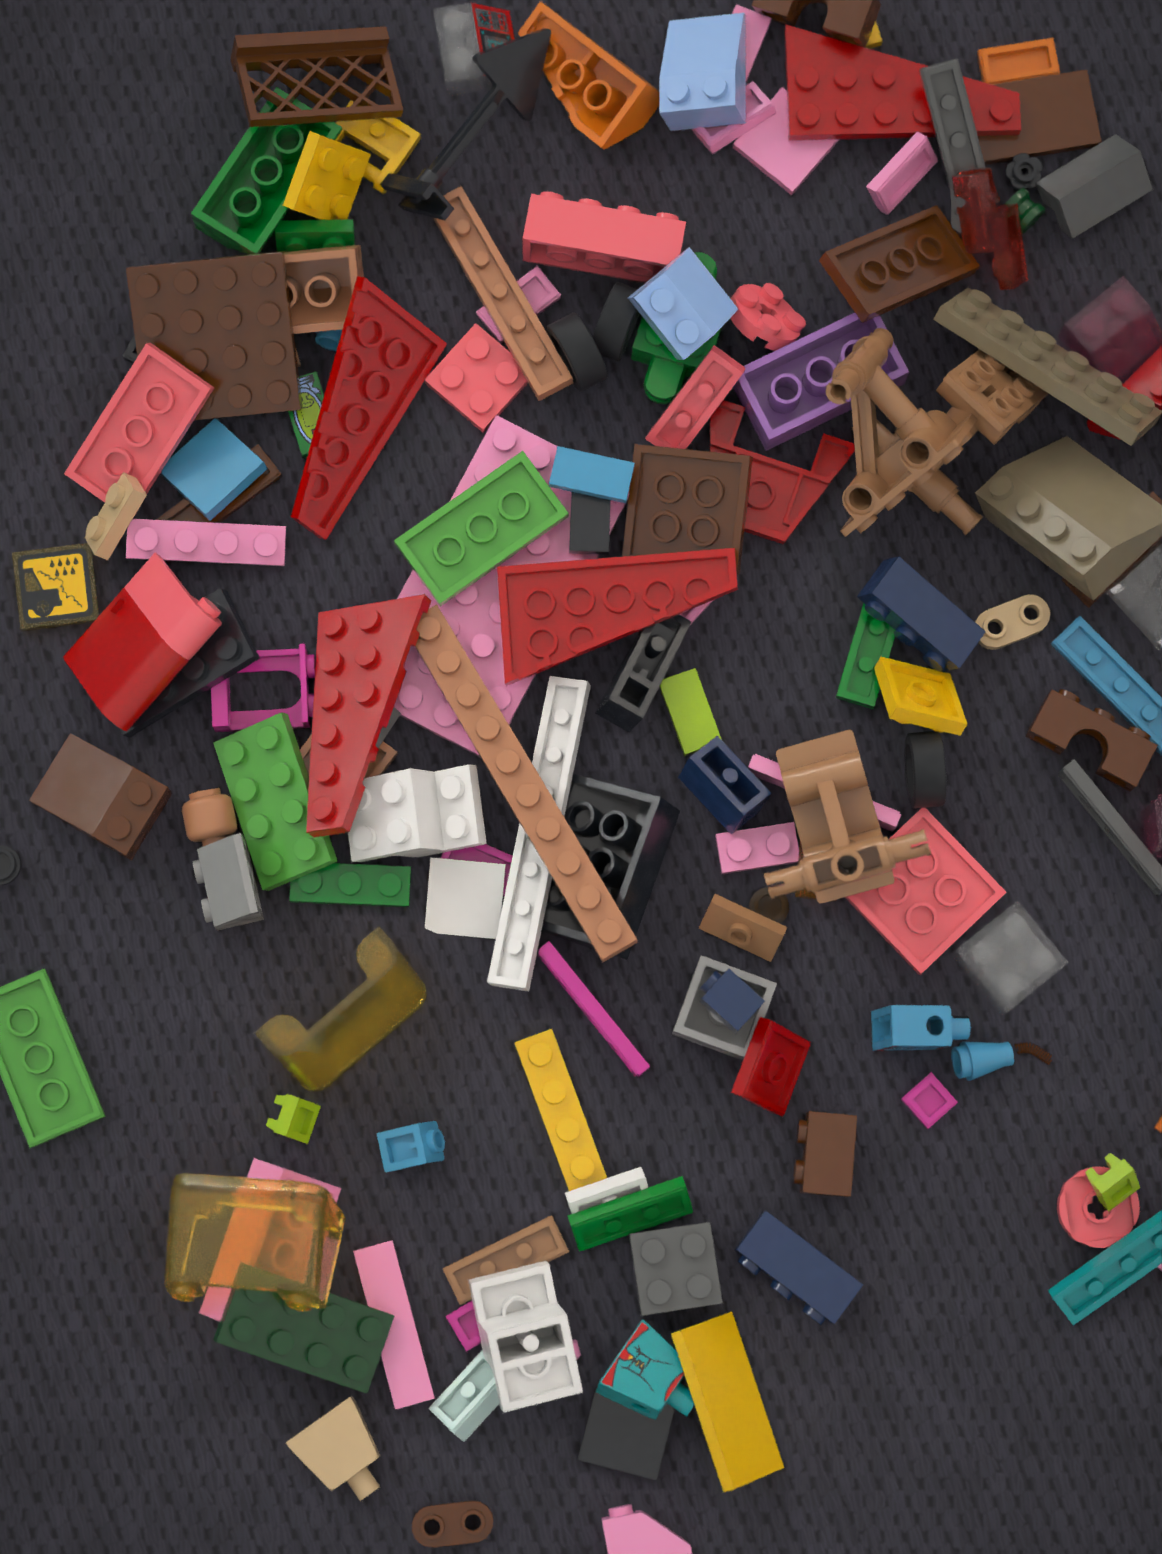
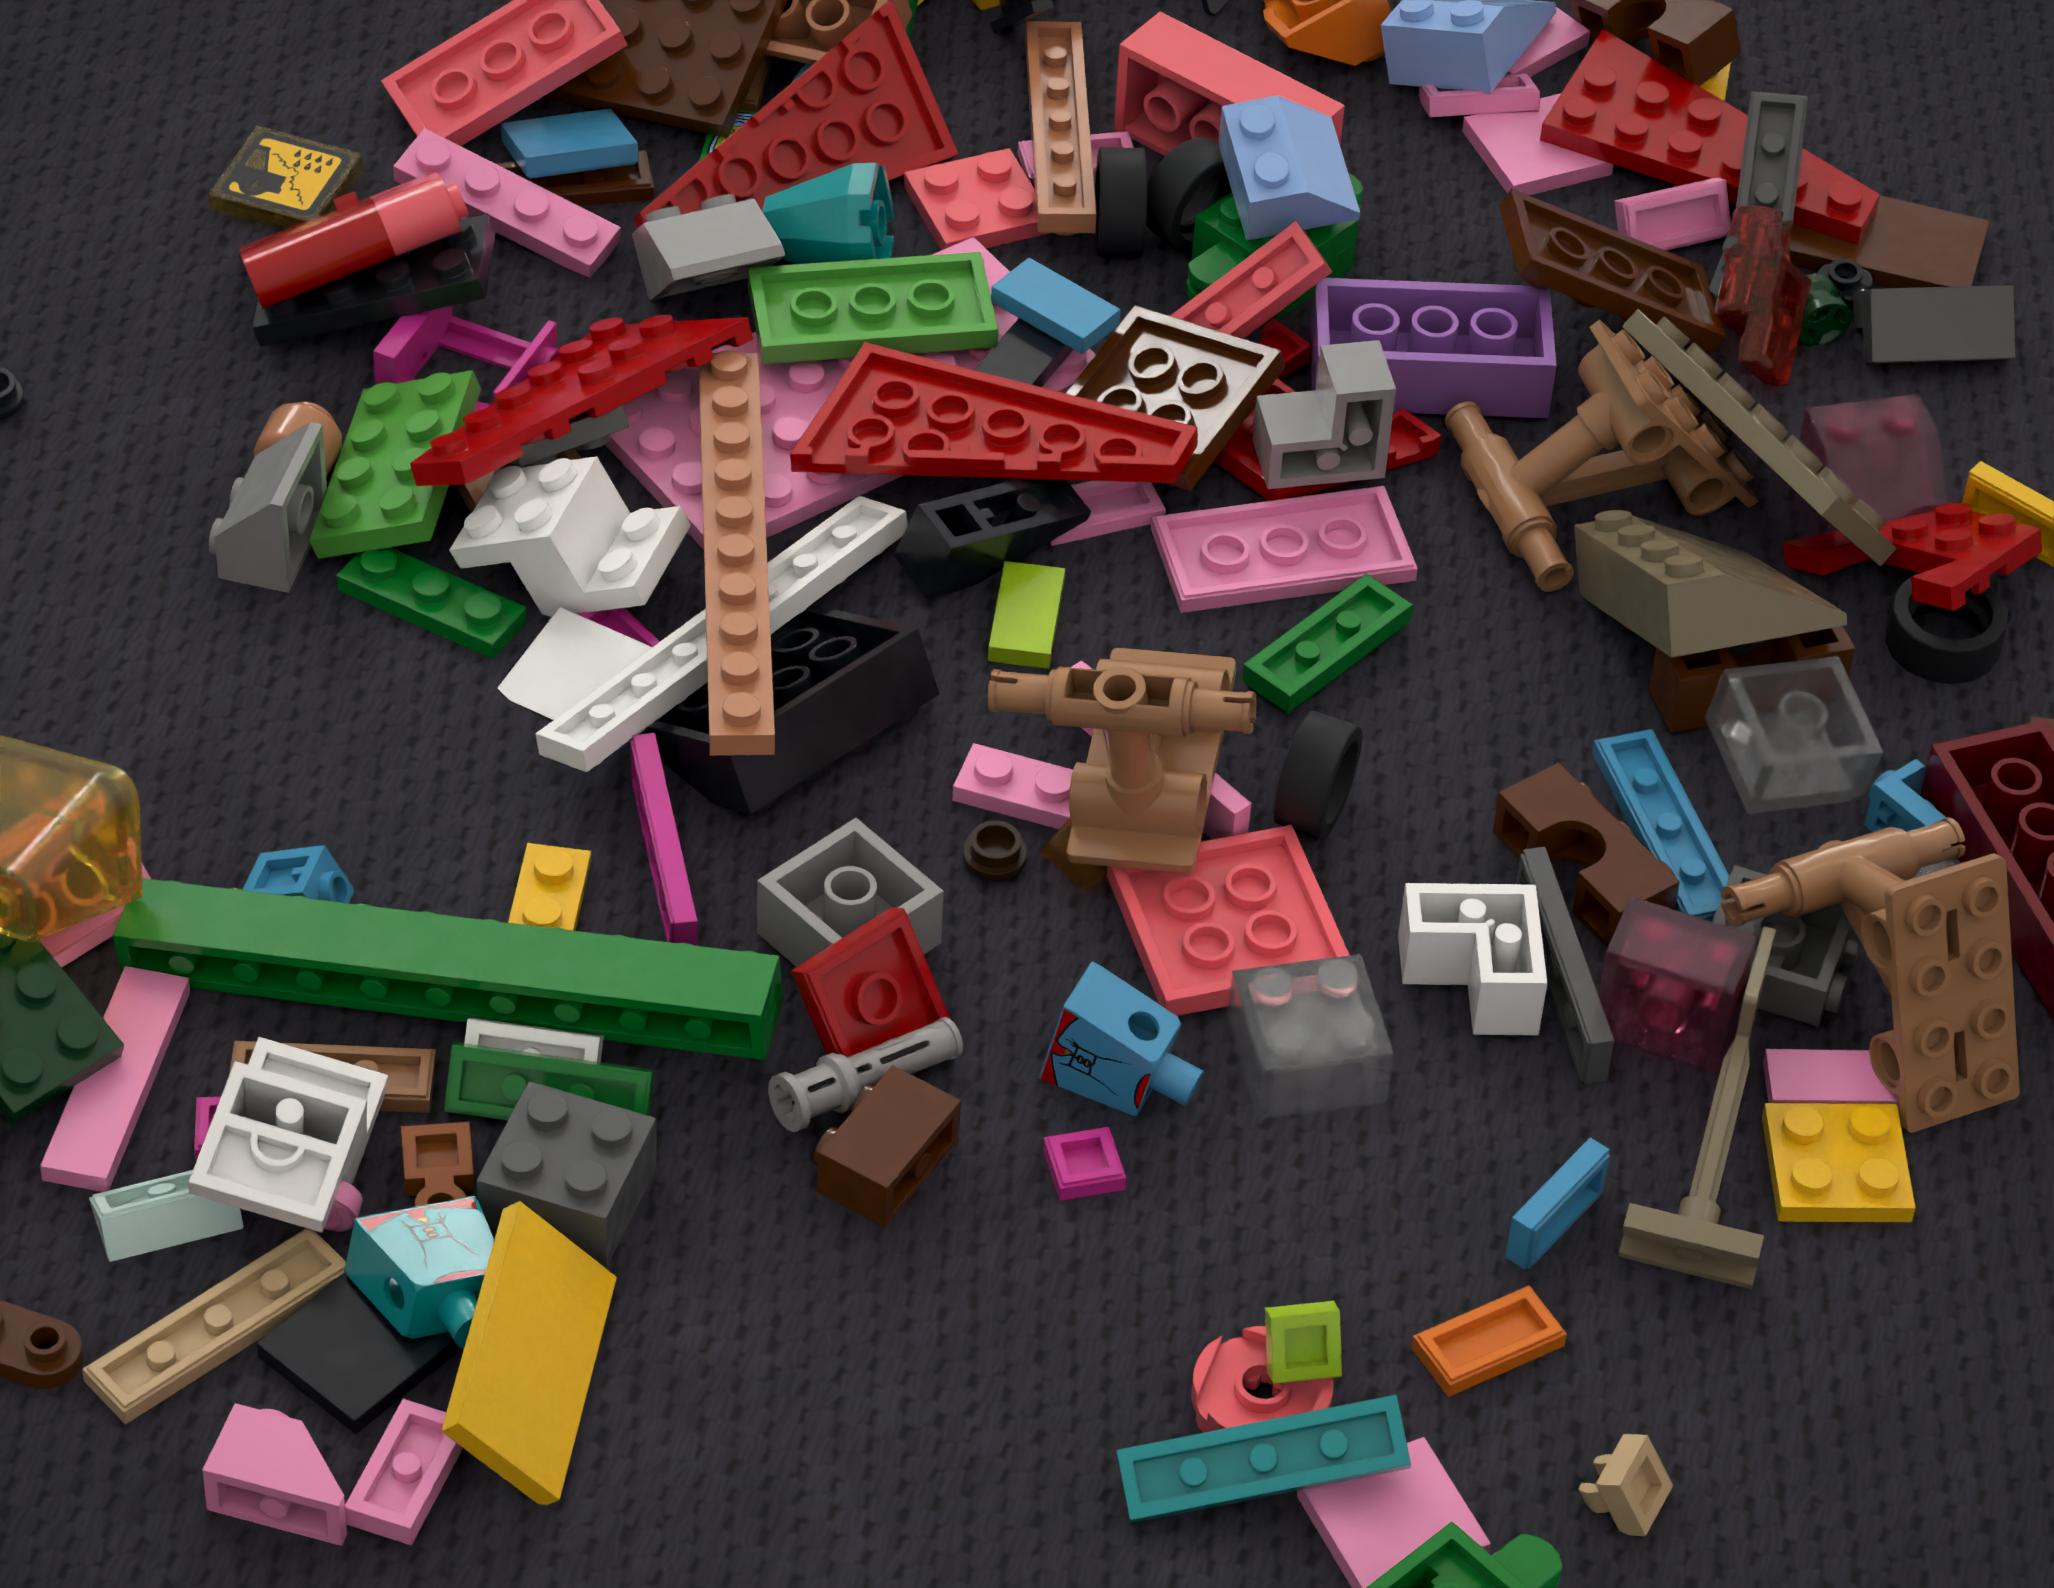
camera: 30 degrees right, 35 degrees down
(101, 796) = (184, 387): reddish brown slope -> none
(115, 516) = (389, 134): tan plate -> none
(295, 1118) = (166, 789): lime tile -> none
(354, 1025) = (316, 693): clear yellow windscreen -> none
(357, 531) = (704, 246): none -> light grey slope
(414, 463) = (834, 216): none -> teal cone
(535, 1170) = (454, 967): none -> green brick
(545, 1462) = (213, 1326): none -> tan tile
(599, 1294) = (437, 1162): none -> dark orange plate
(701, 1498) = (403, 1474): none -> bright pink plate
(724, 785) = (1019, 646): dark blue brick -> none
(730, 999) = (862, 861): dark blue brick -> none
(743, 927) = (941, 849): medium nougat plate -> none
(766, 315) = (1389, 254): coral plate -> none
(782, 1127) = (840, 1079): none -> light grey pin
(797, 1269) = (750, 1257): dark blue brick -> none
(804, 579) = (1282, 548): none -> bright pink tile
(806, 491) = (1331, 431): none -> light grey brick
(920, 615) = (1418, 616): dark blue brick -> none
(920, 696) = (1376, 707): yellow plate -> none
(923, 440) = (1524, 397): medium nougat plate -> none
(980, 1058) = (1194, 1140): dark azure cone -> none
(1013, 621) = (1548, 702): tan plate -> none
(1018, 61) = (1904, 182): orange tile -> none
(1034, 1052) = (1266, 1170): reddish brown leg -> none
(1079, 842) = (1481, 940): none -> white brick

